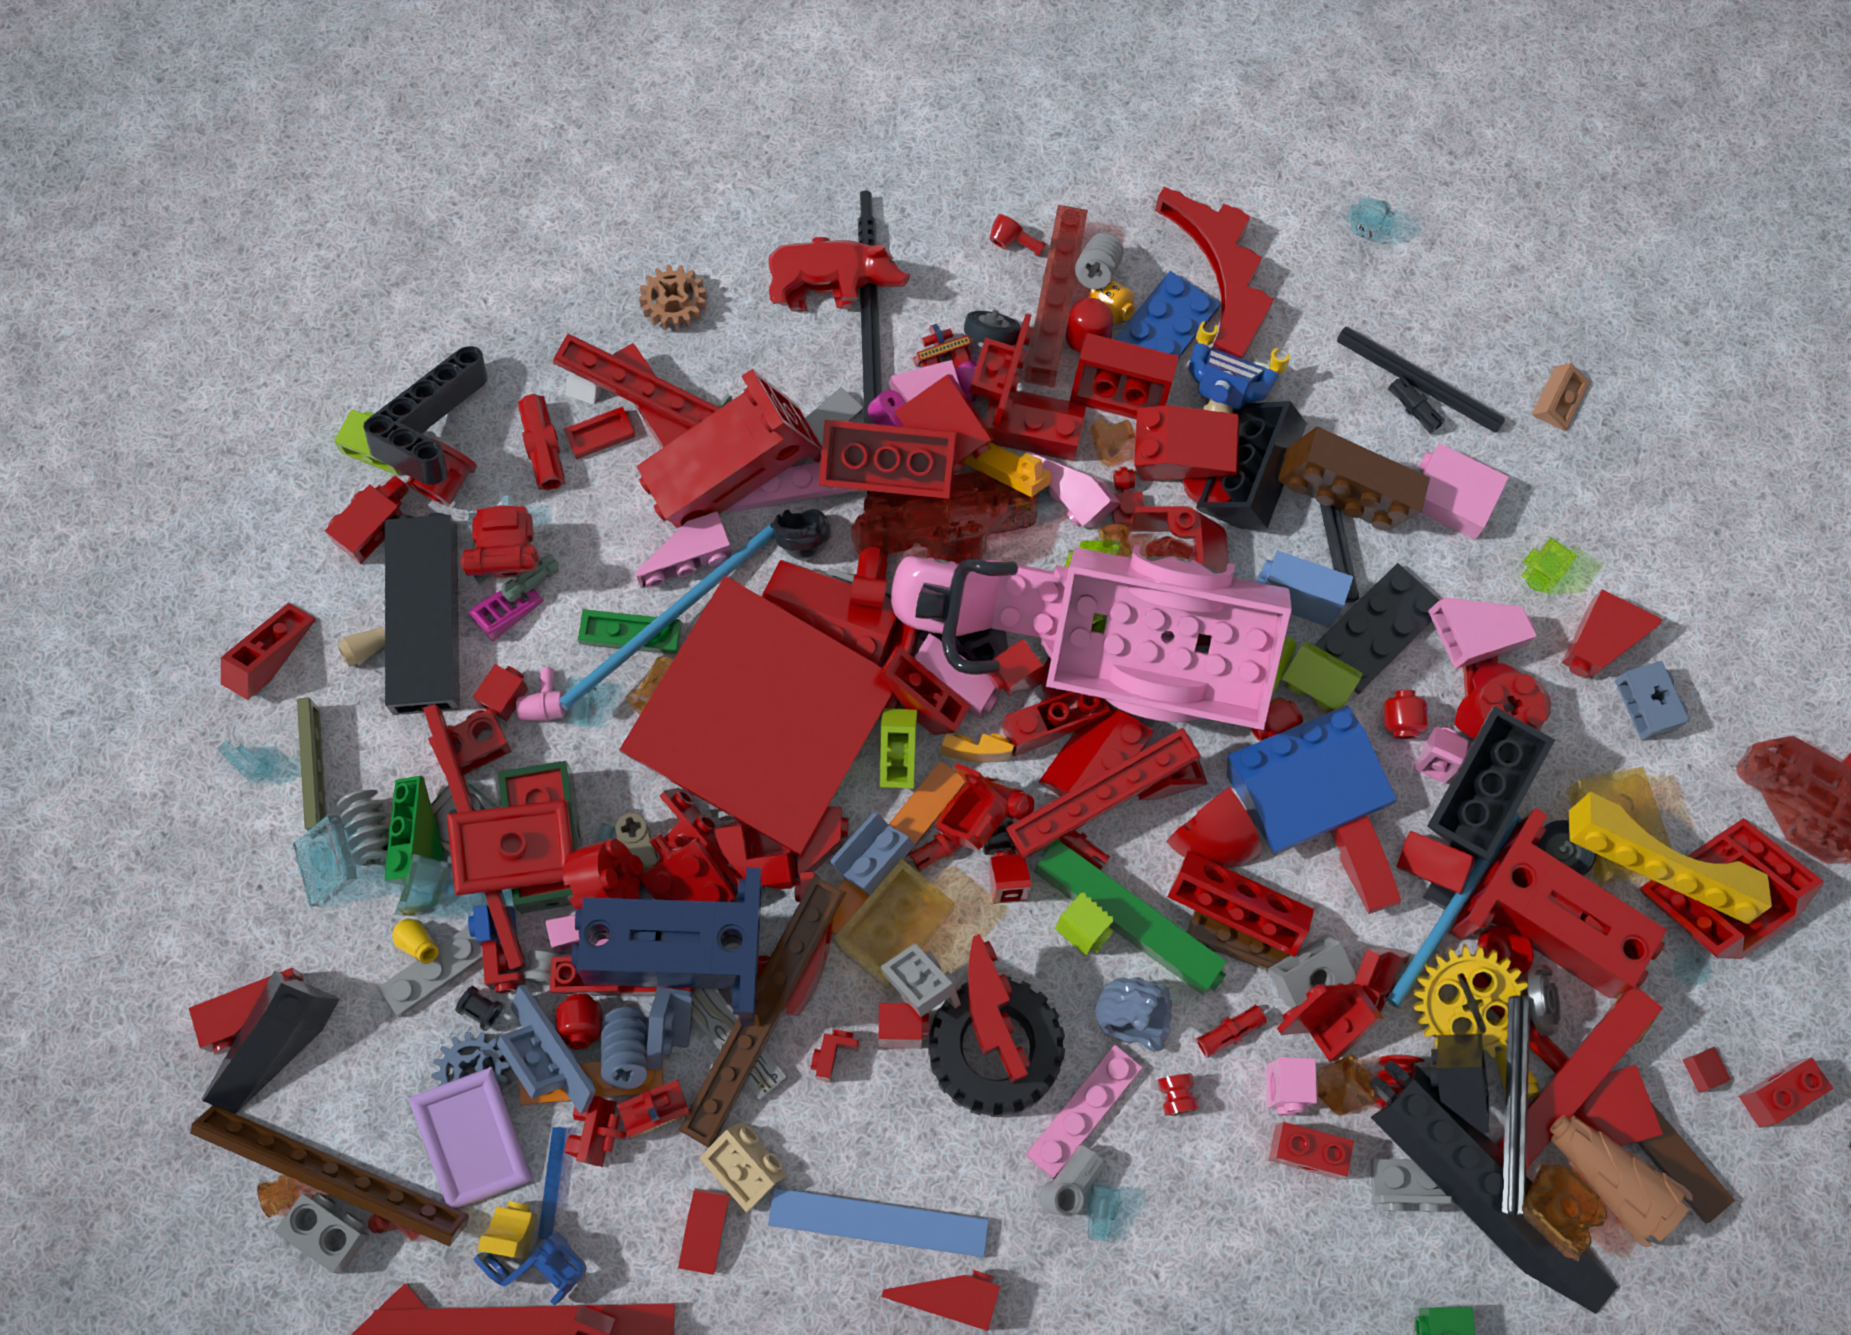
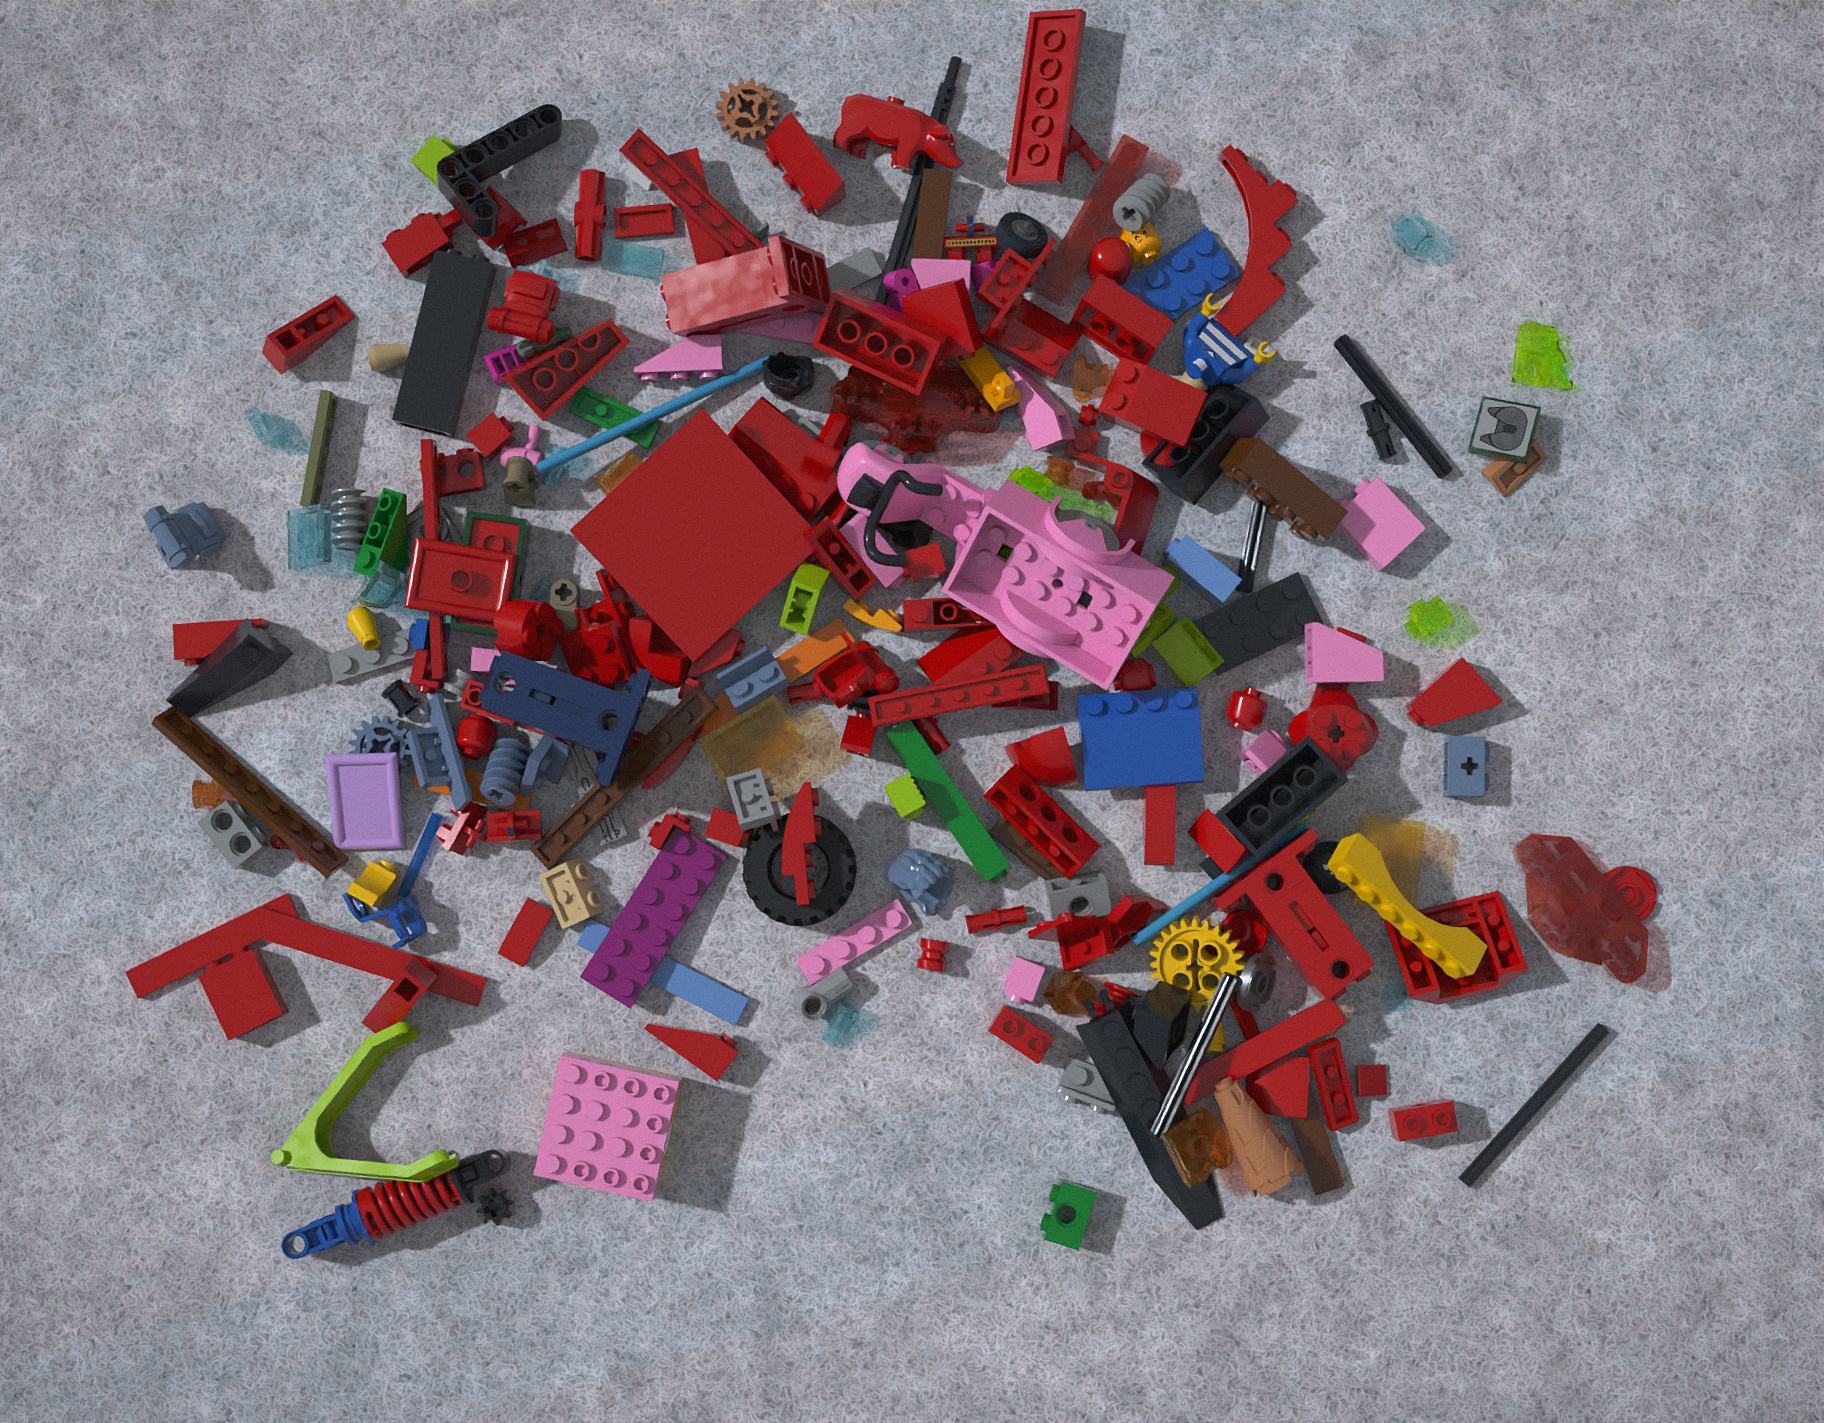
camera: 25 degrees right, 15 degrees up
(178, 902) = (185, 534): none -> sand blue piece
(490, 486) = (535, 243): none -> red slope
(546, 727) = (520, 482): none -> dark tan piece
(555, 601) = (563, 369): none -> red wedge
(599, 471) = (632, 259): none -> clear light blue plate
(750, 327) = (804, 167): none -> red slope
(846, 1163) = (653, 917): none -> magenta plate
(893, 333) = (932, 215): none -> reddish brown tile
(968, 200) = (1046, 97): none -> red plate
(1534, 283) = (1539, 346): none -> clear neon green slope
(1540, 365) = (1504, 430): none -> tile
(1674, 1085) = (1333, 1083): none -> red plate

